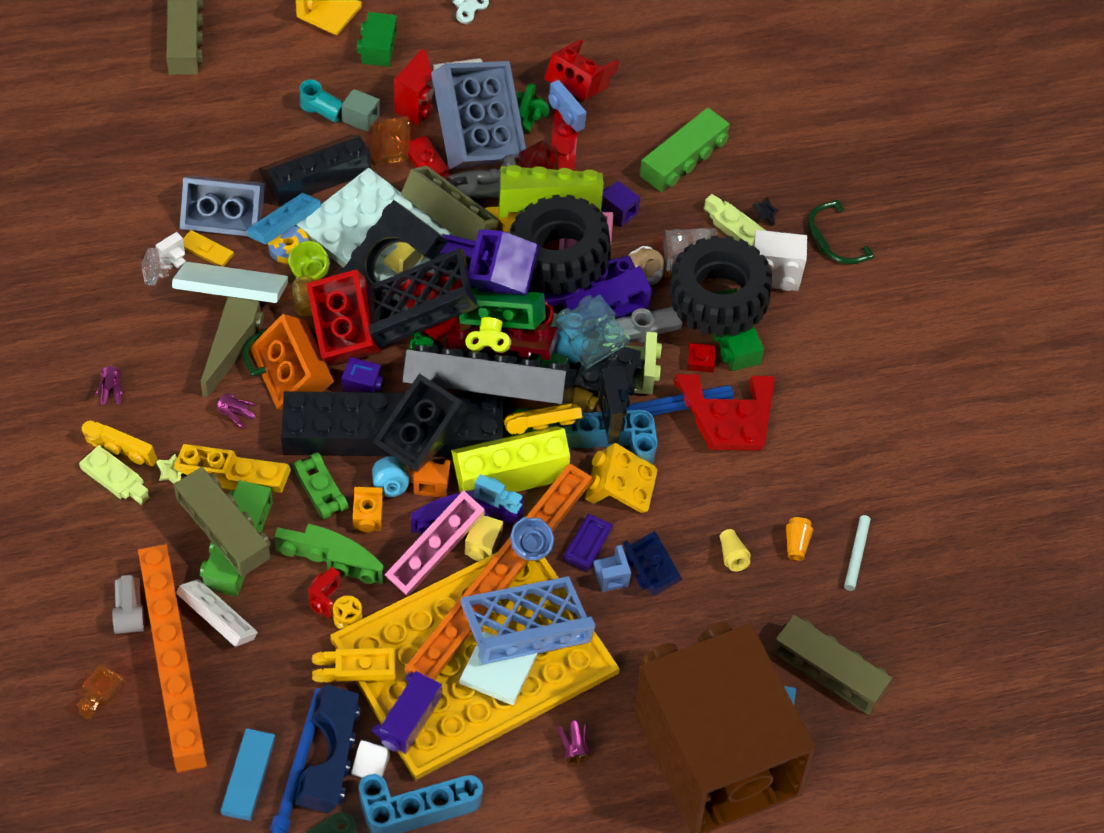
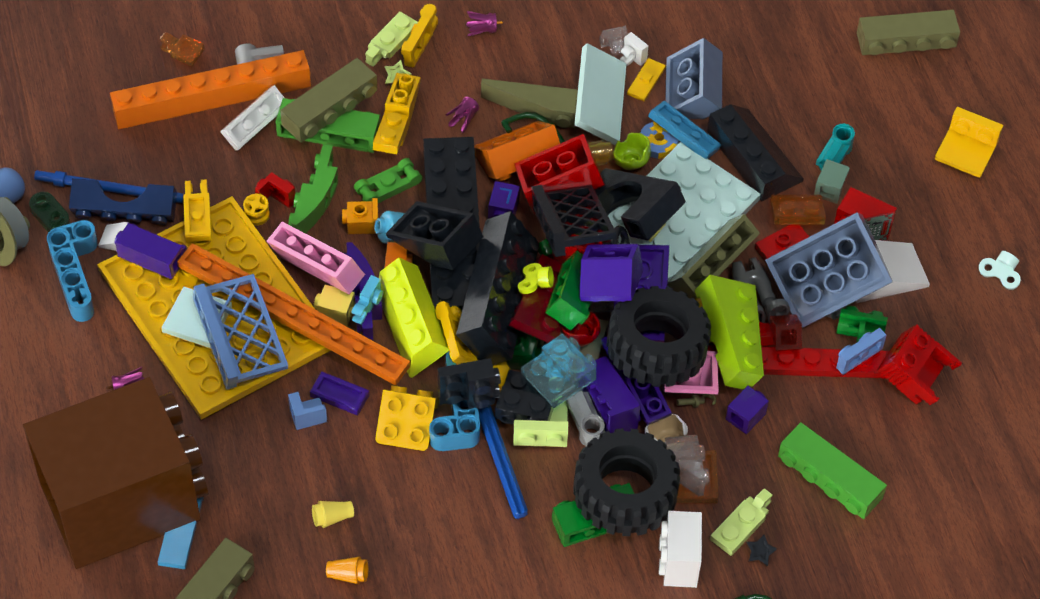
camera: 90 degrees right, 0 degrees up
(248, 774) = (107, 154): dark azure tile -> none
(378, 39) = (931, 190): green brick -> none
(531, 539) = (314, 322): medium blue hair -> none
(653, 564) = (312, 438): clear blue bracket -> none
(701, 357) = (561, 488): red plate -> none
(730, 422) = (481, 514): red wing -> none

